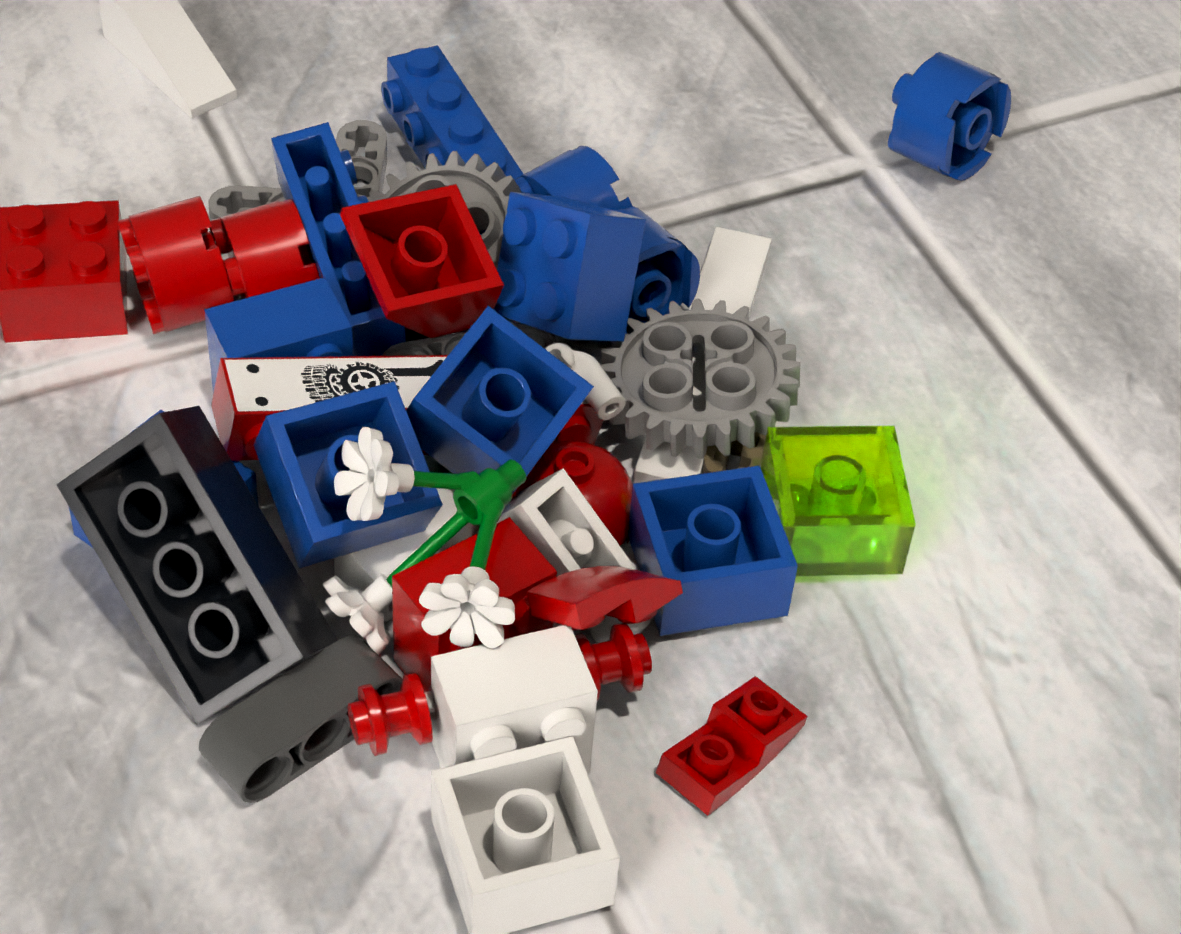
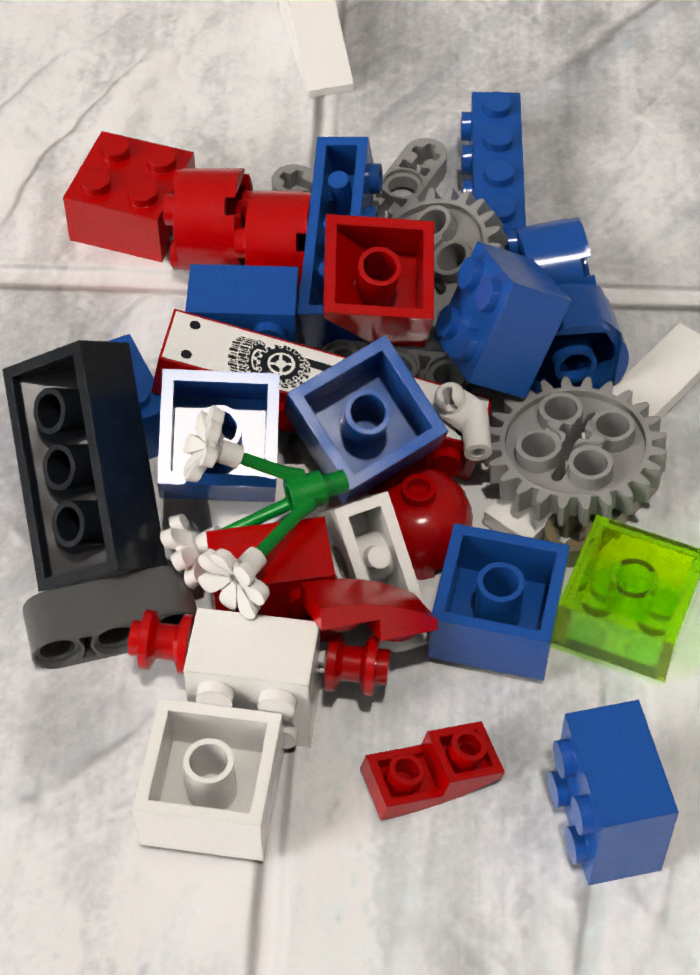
camera: 30 degrees right, 5 degrees up
(936, 688) = (612, 793): none -> blue brick

